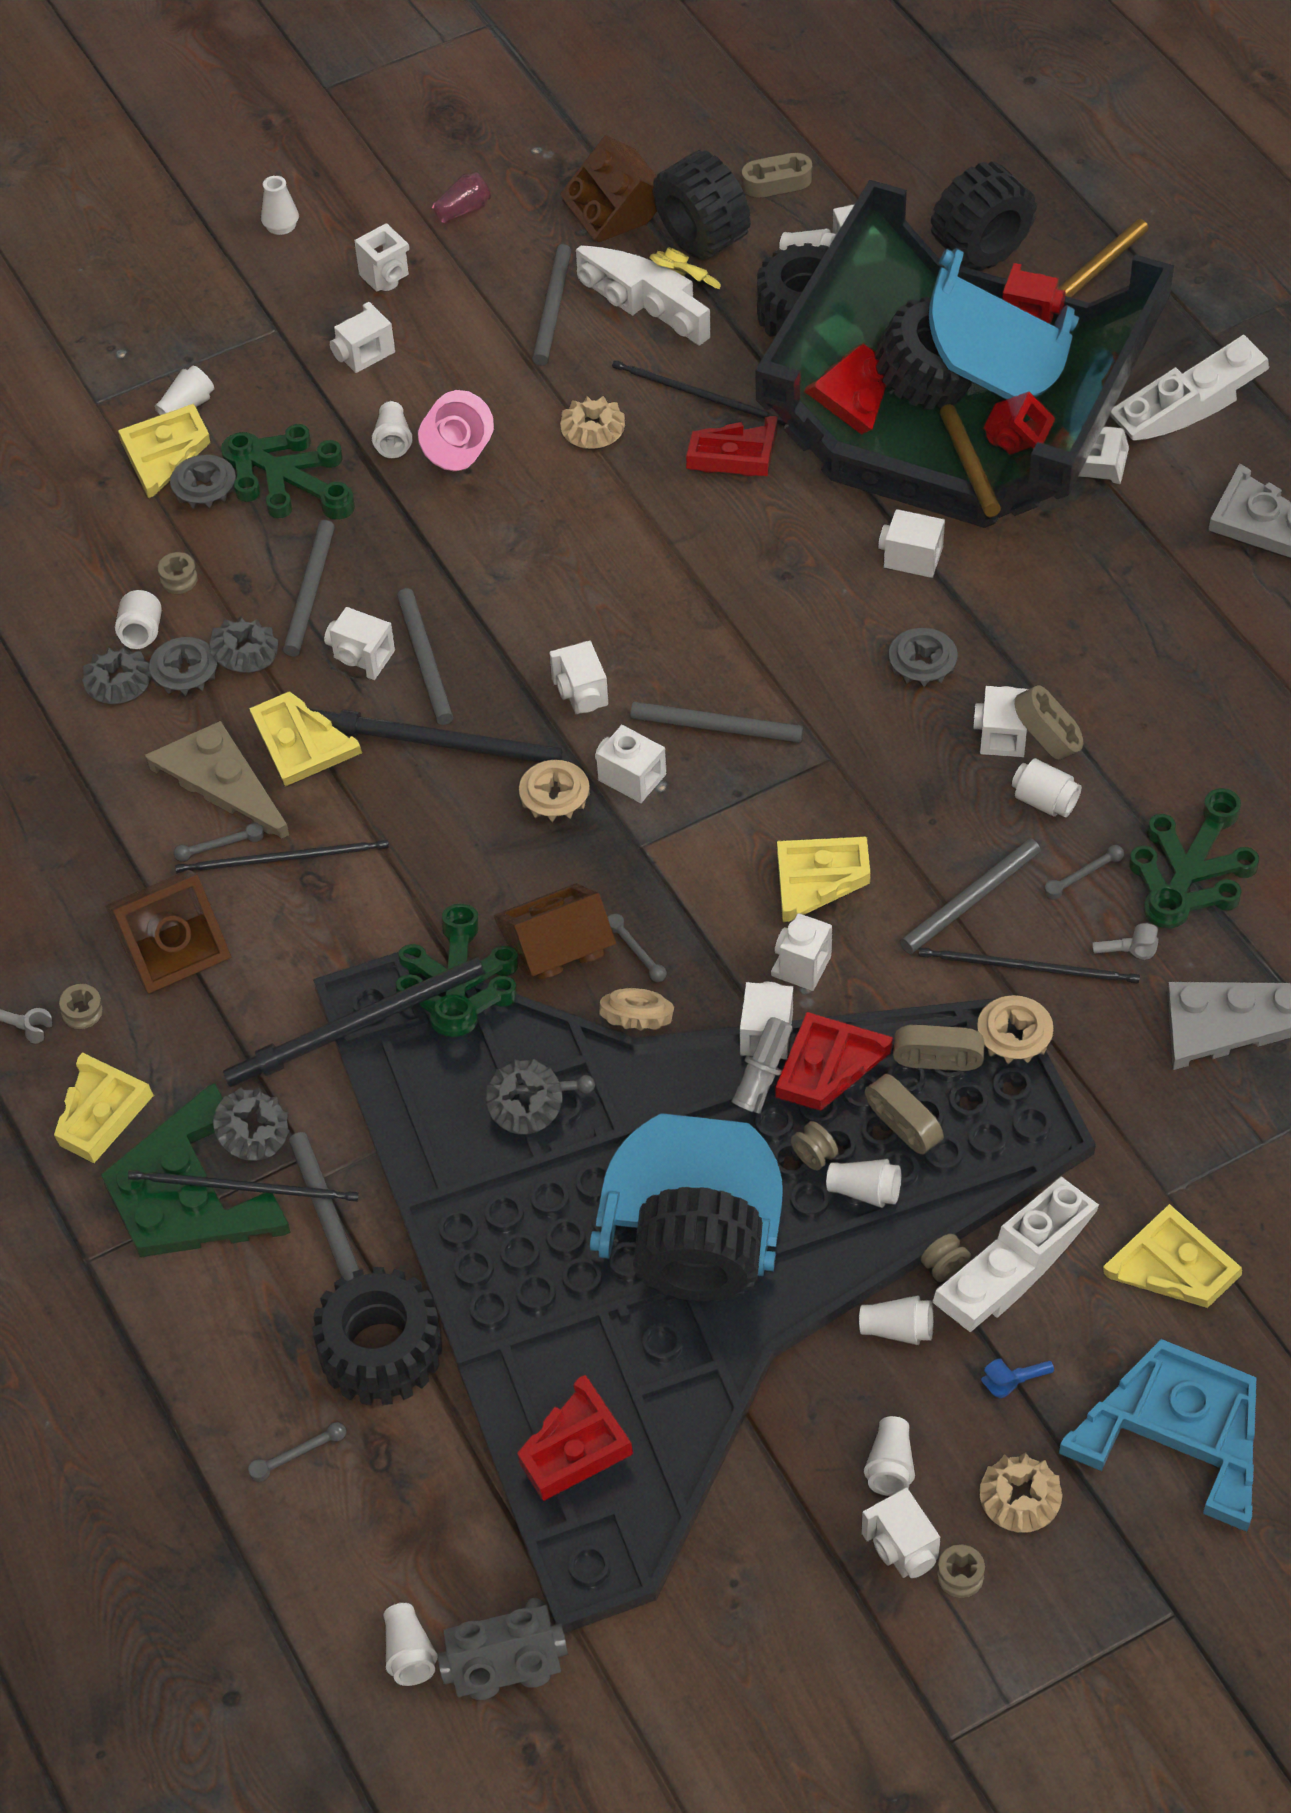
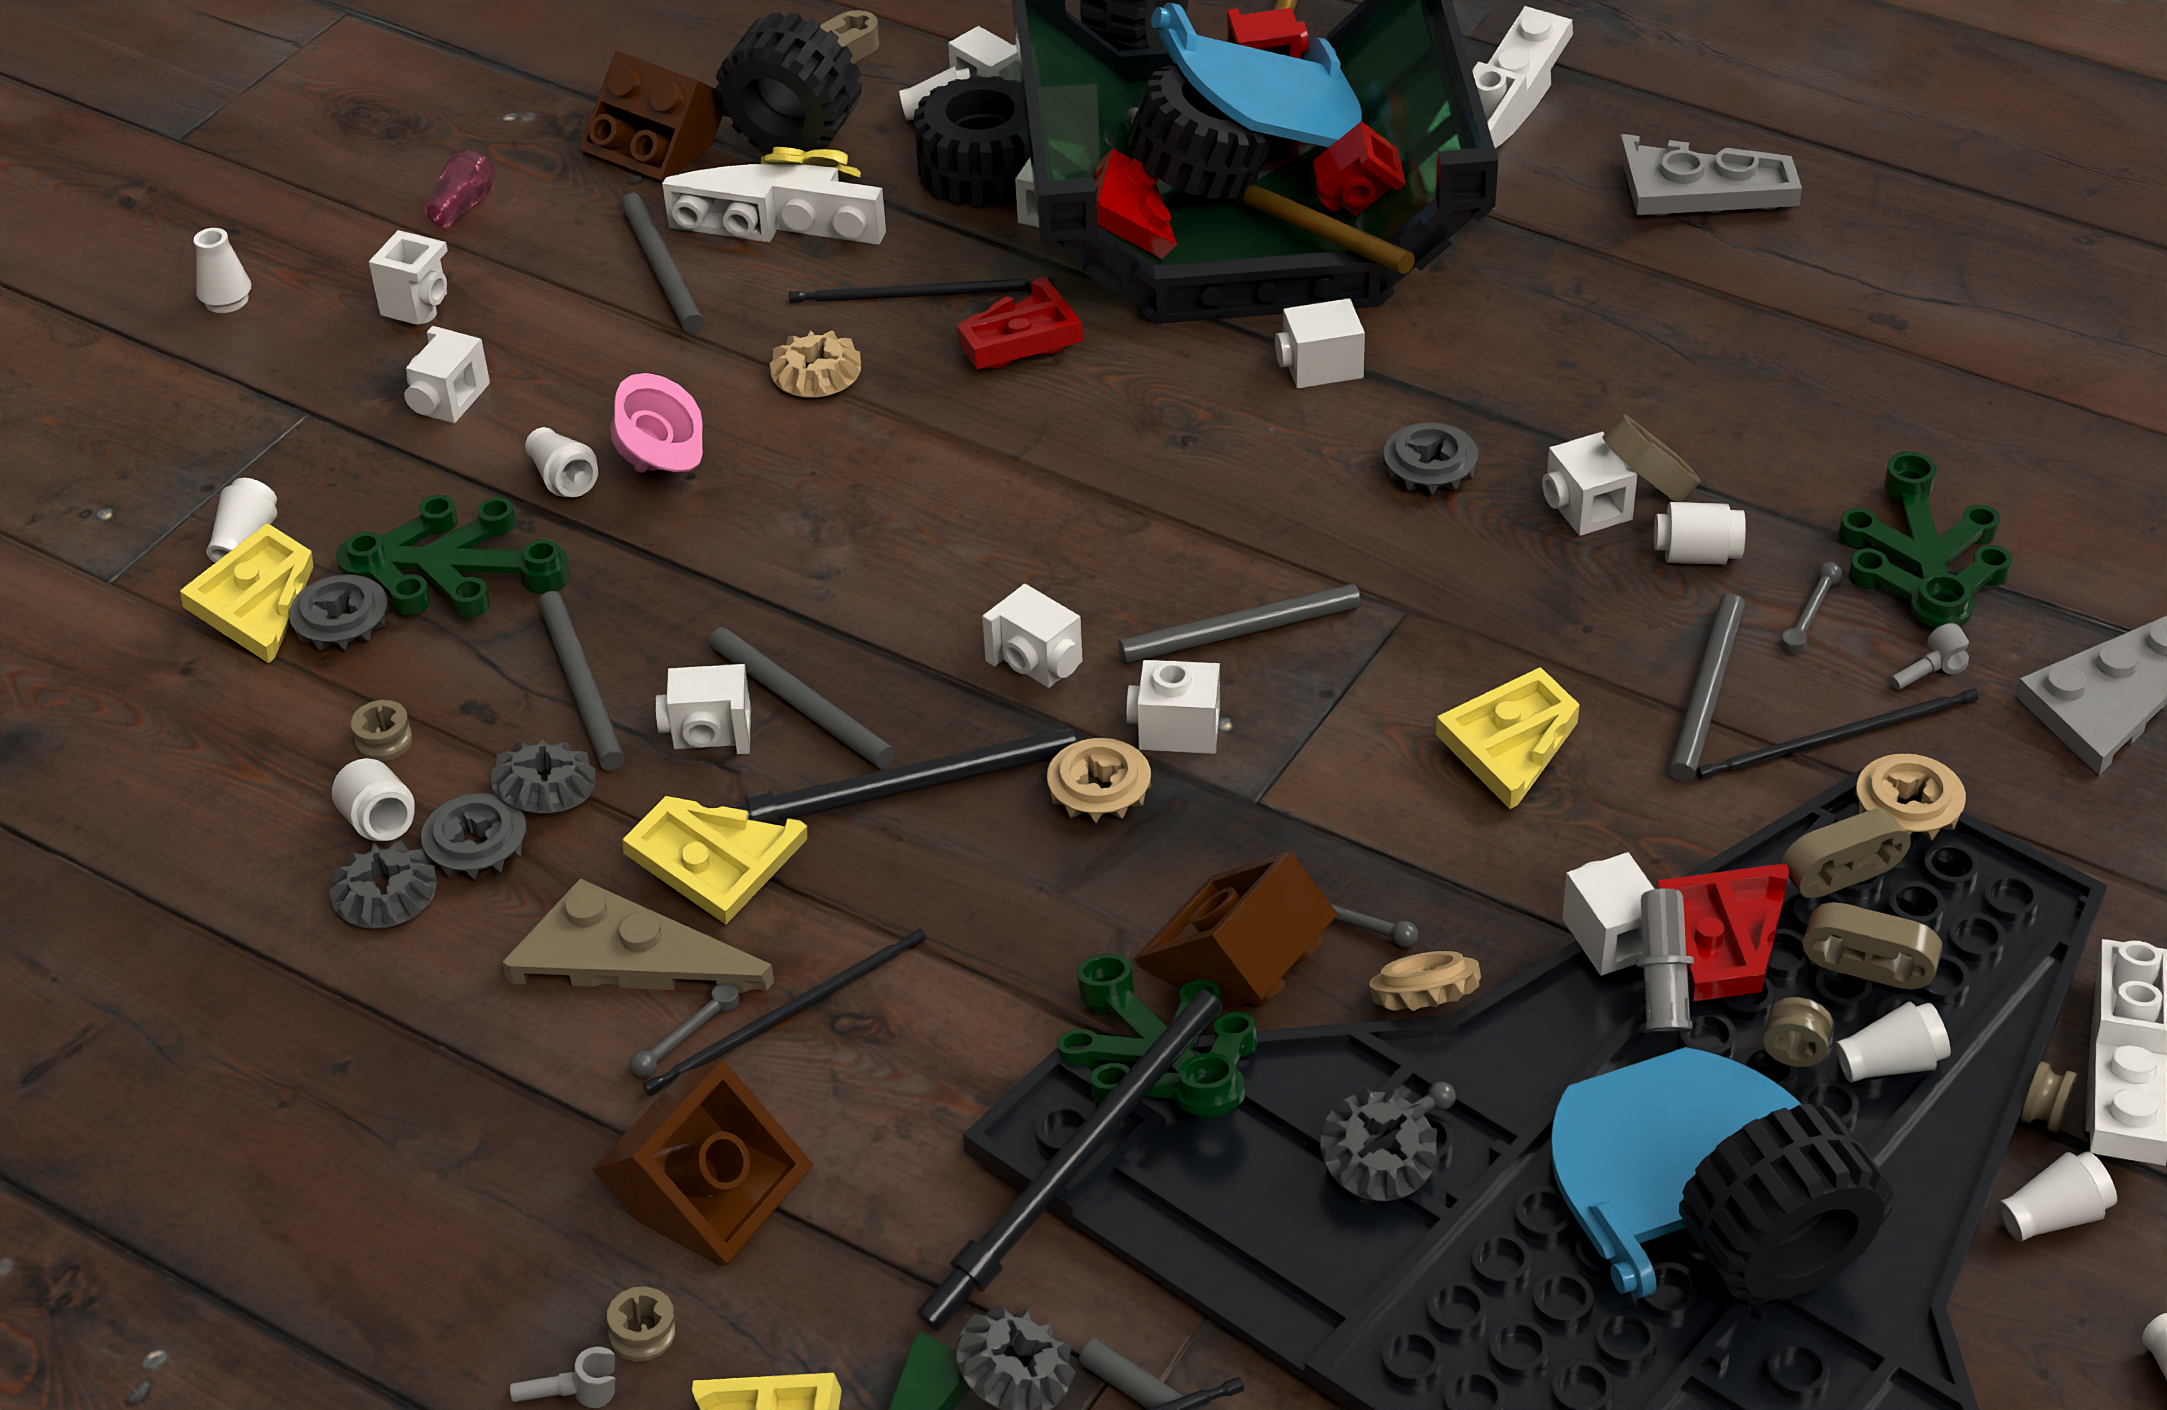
camera: 30 degrees left, 10 degrees down
(803, 951) = (1573, 823): white brick -> none

